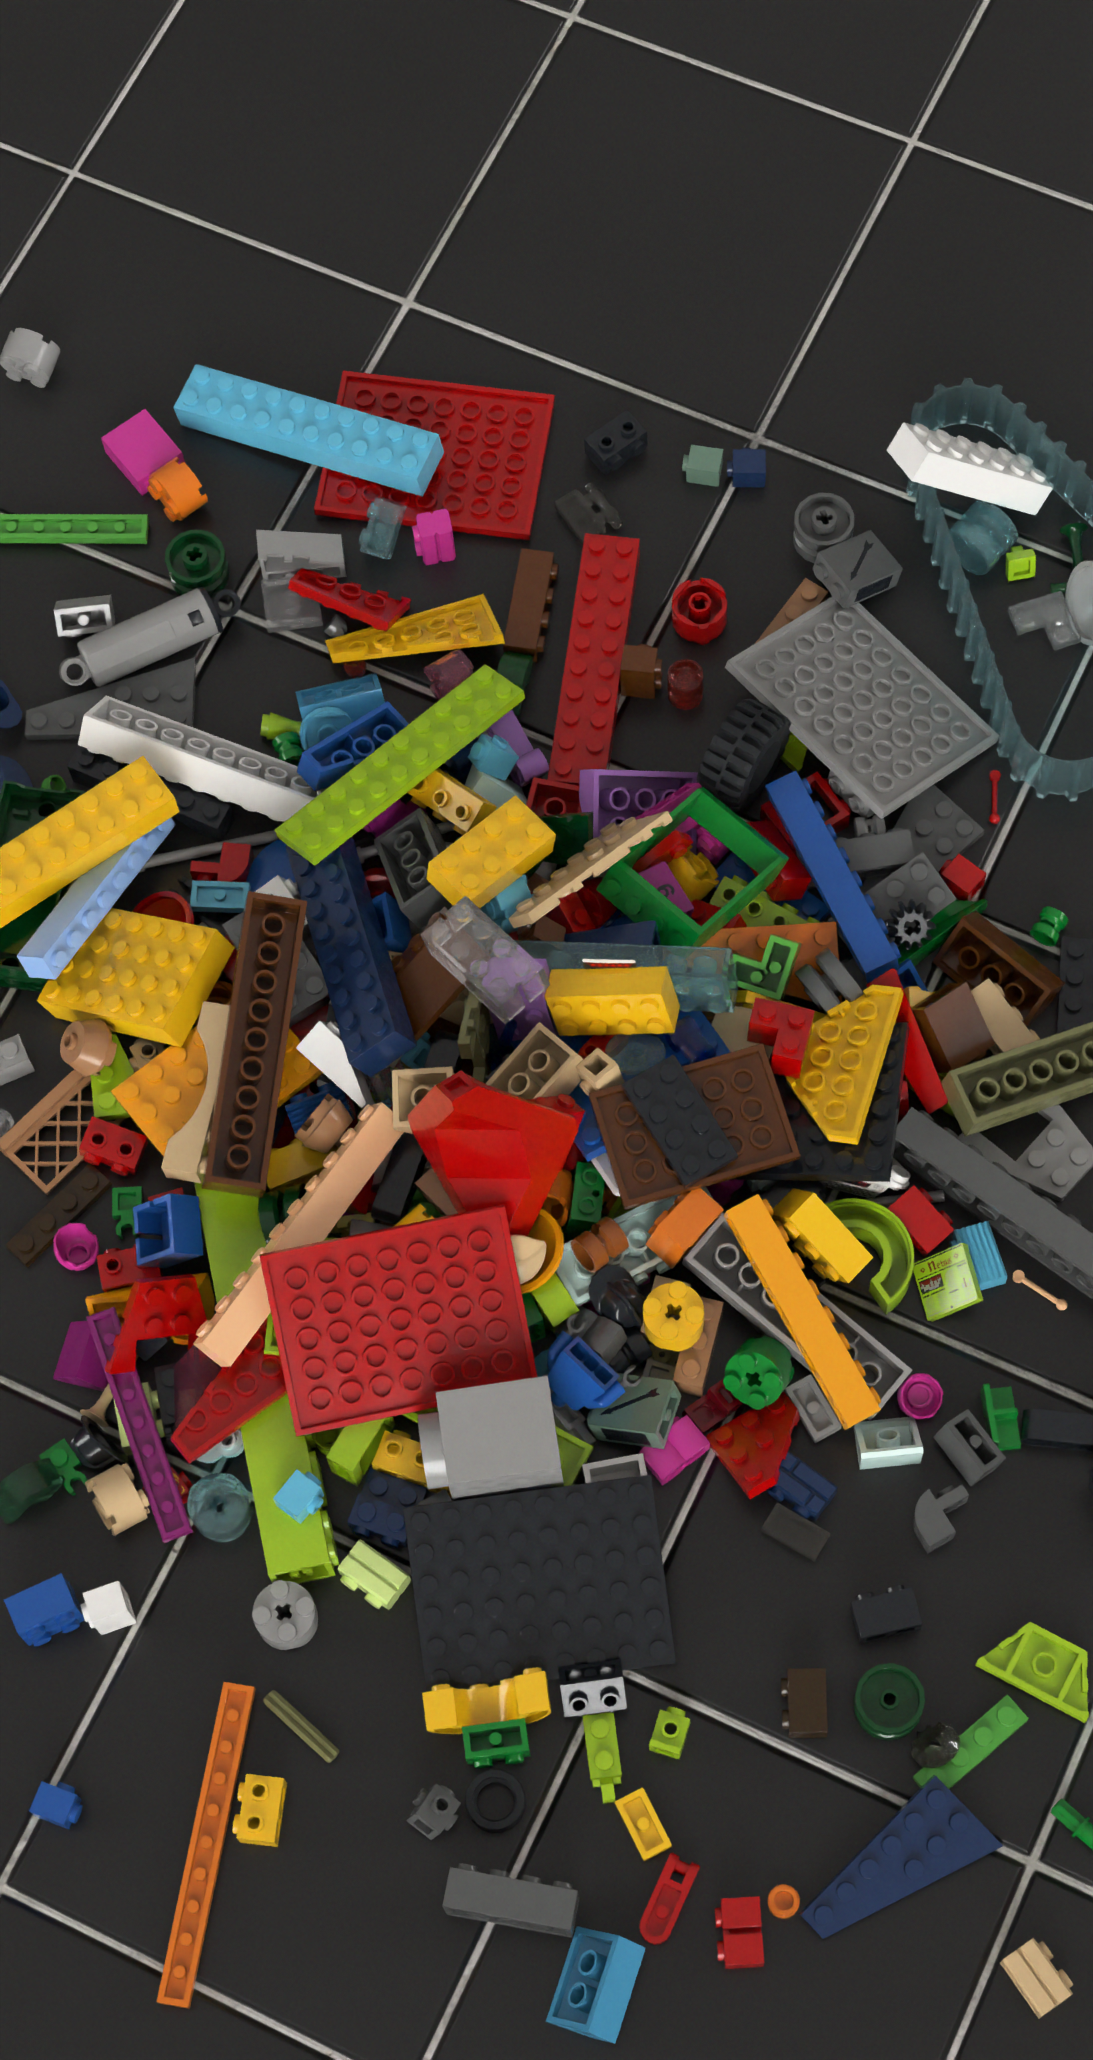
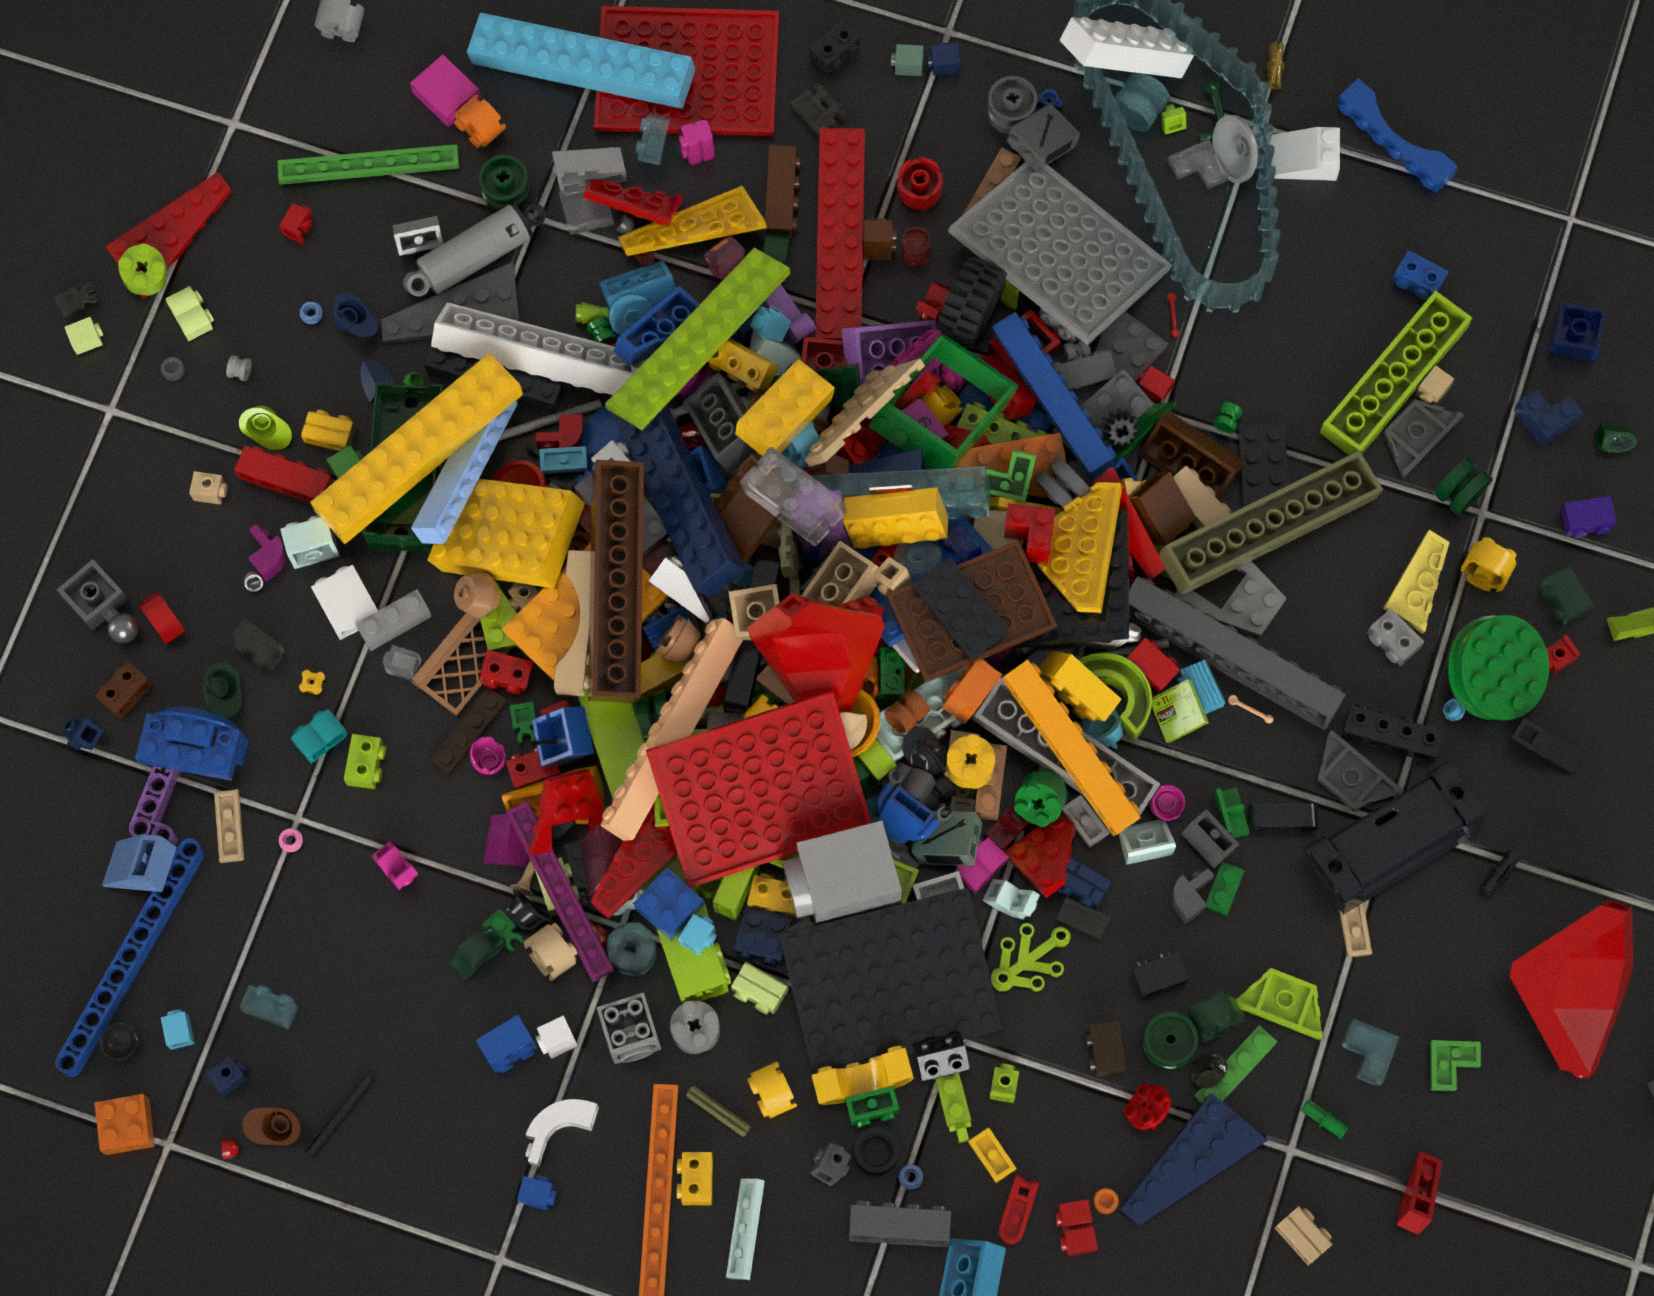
camera: 10 degrees left, 5 degrees up
(91, 1711) = (556, 1116): none -> white arch
(200, 1607) = (629, 1029): none -> light grey brick
(268, 1453) = (668, 904): none -> blue brick
(314, 1883) = (745, 1229): none -> light aqua plate
(371, 1707) = (772, 1090): none -> yellow brick
(528, 1832) = (911, 1169): none -> medium blue plate
(692, 756) = (932, 305): none -> red brick
(706, 1497) = (1010, 899): none -> light aqua brick
(718, 1578) = (1027, 960): none -> lime plant
(851, 1297) = (1106, 732): none -> medium azure piece
(851, 1784) = (1148, 1106): none -> red plate
(870, 521) = (1049, 94): none -> blue plate
(952, 1675) = (1216, 1015): none -> clear green brick
(981, 1513) = (1224, 888): none -> green plate

